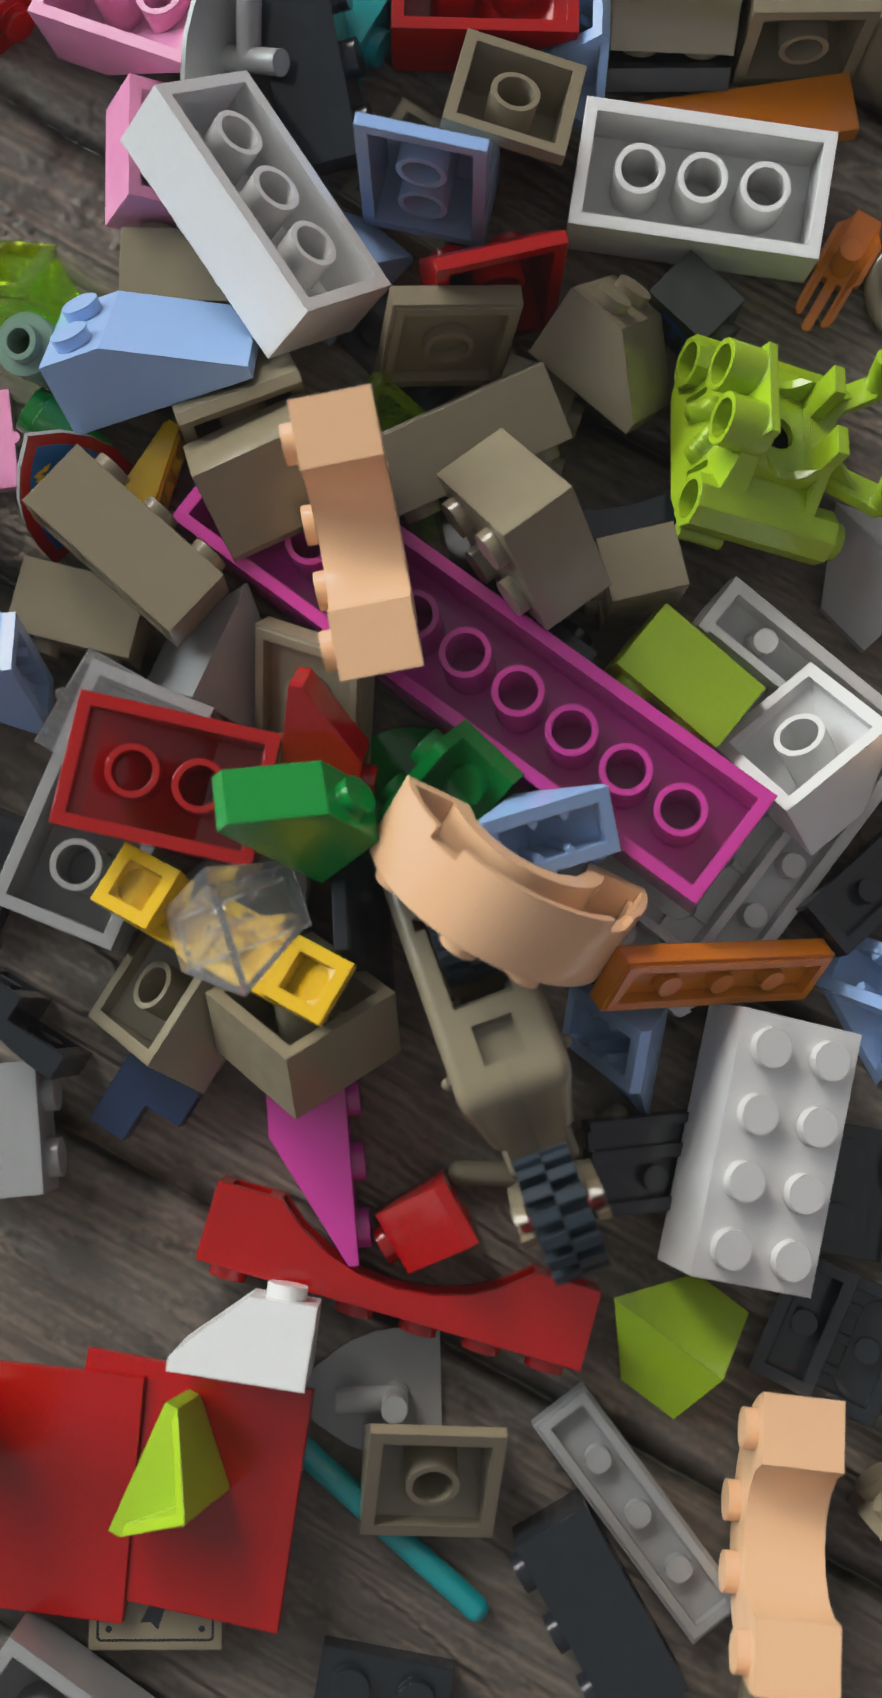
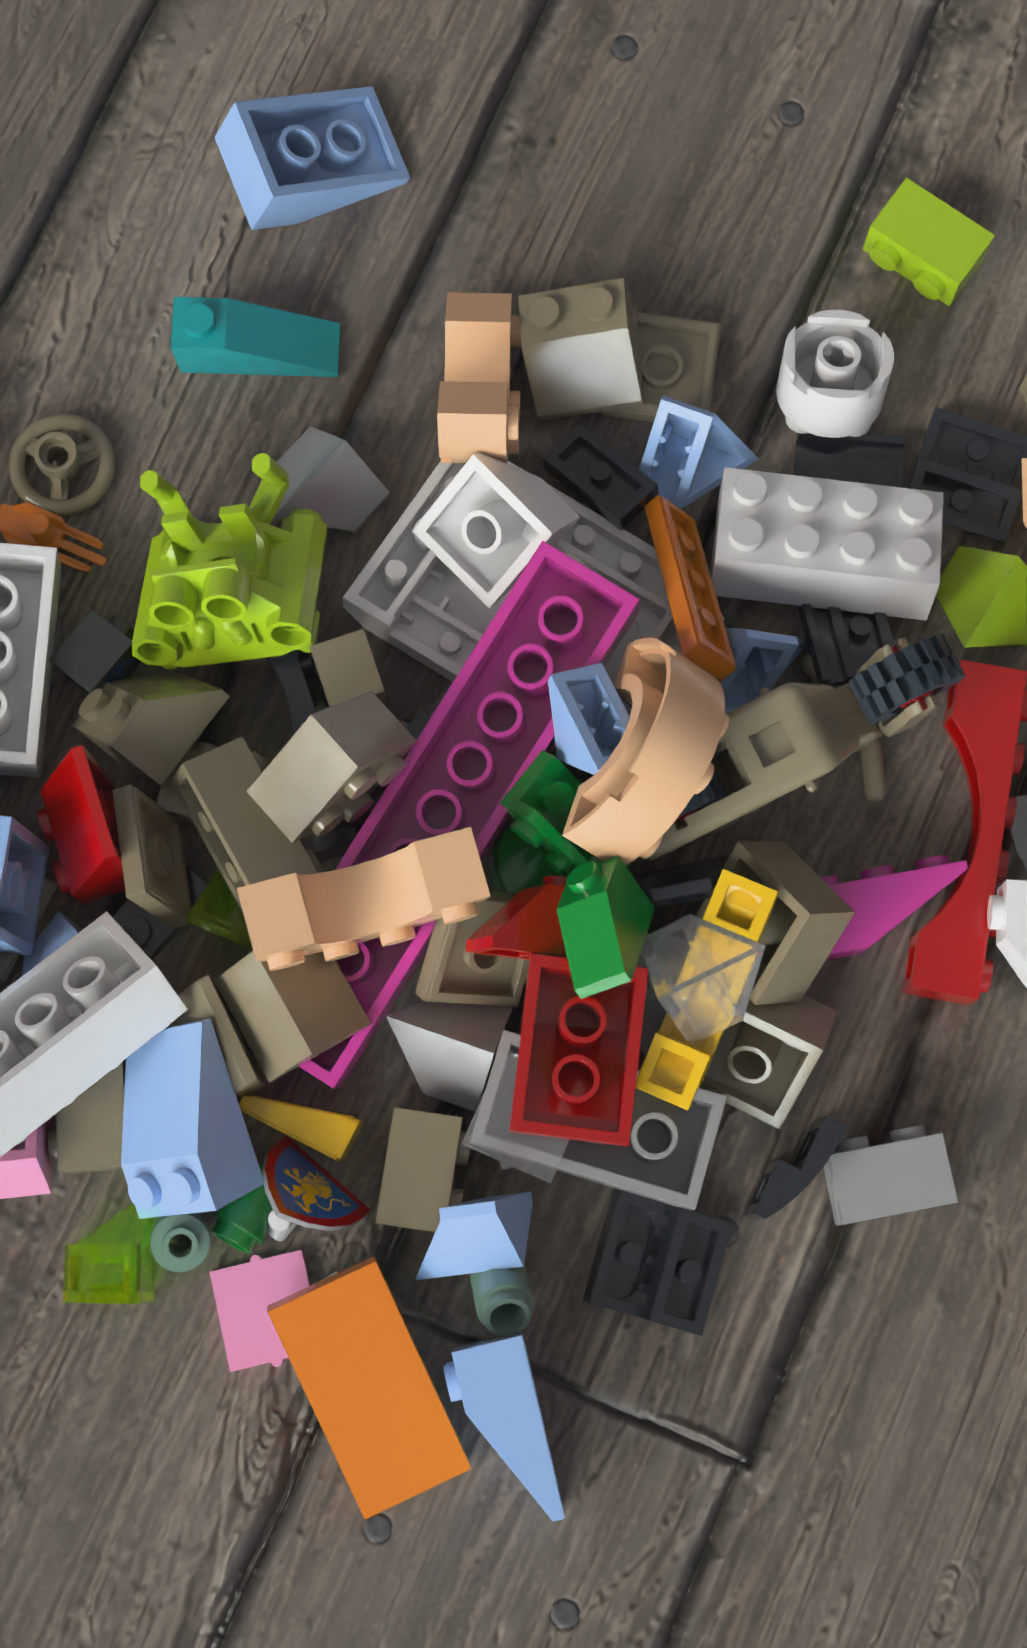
camera: 90 degrees left, 5 degrees down
(129, 543) = (363, 1119): dark tan brick -> none
(136, 1090) = (839, 1075): dark blue piece -> none
(425, 1224) = (923, 809): red slope -> none
(685, 676) = (438, 633): lime brick -> none

